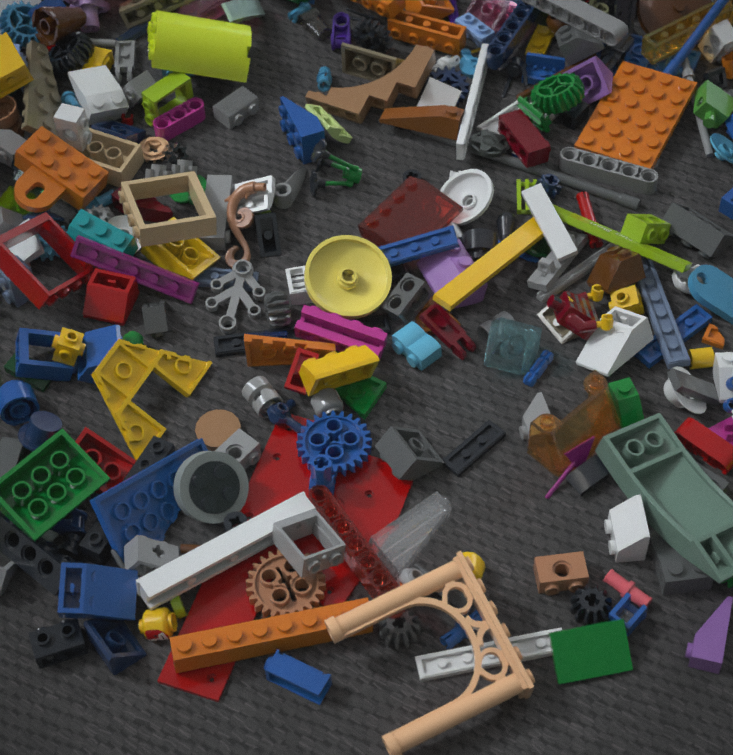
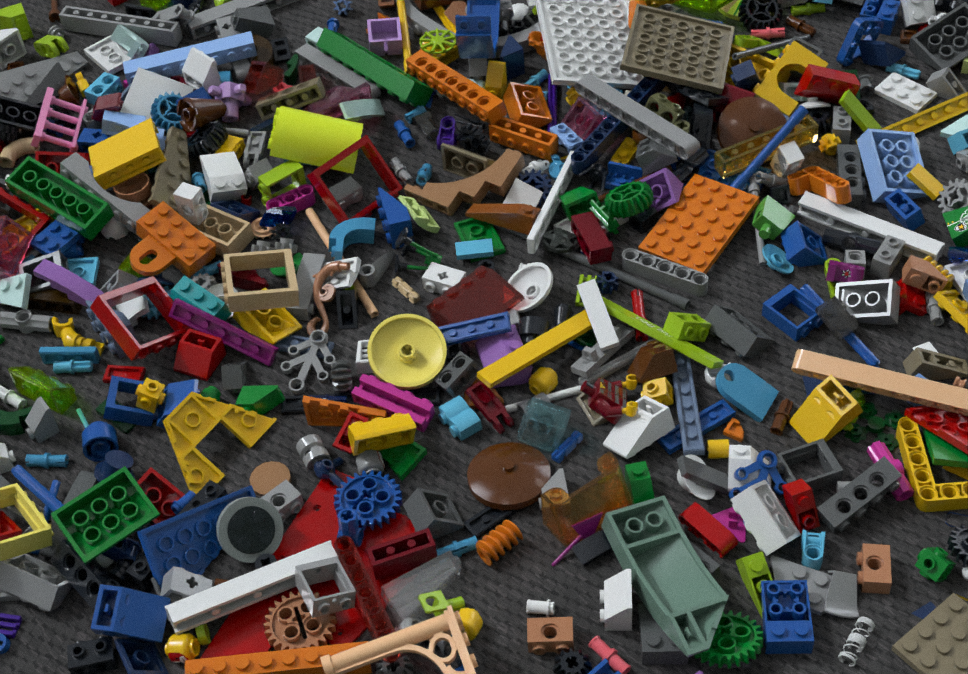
camera: 10 degrees right, 5 degrees down
(38, 322) = (129, 372): none -> red tile
(122, 468) = (182, 502): none -> blue pin
(170, 134) = (278, 215): none -> clear blue slope
(190, 340) = (260, 398): none -> green slope
(239, 171) = (362, 295): none -> light nougat piece
(256, 147) = (350, 232): none -> dark azure arch
(274, 70) = (377, 162): none -> red window
(292, 35) = (404, 134): none -> blue pin
(297, 77) = (401, 171): none -> light grey pin
(327, 208) = (406, 290): none -> tan axle
(366, 193) = (441, 278): none -> white brick
(385, 499) = (402, 553): none -> dark red brick
(396, 158) = (474, 249): none -> medium azure tile
(397, 147) = (474, 229): none -> green tile
(437, 551) = (440, 603): none -> lime bracket
(443, 487) = (460, 547): none -> dark azure pin
(481, 405) = (508, 475): none -> reddish brown dish
(485, 476) = (497, 540): none -> orange piece
(499, 298) = (543, 381): none -> yellow head
(500, 99) = (577, 201): none -> green torso
(514, 313) = (552, 397): none -> white bar
(544, 544) = (540, 607): none -> white pin
(702, 63) = (769, 179): none -> light grey pin

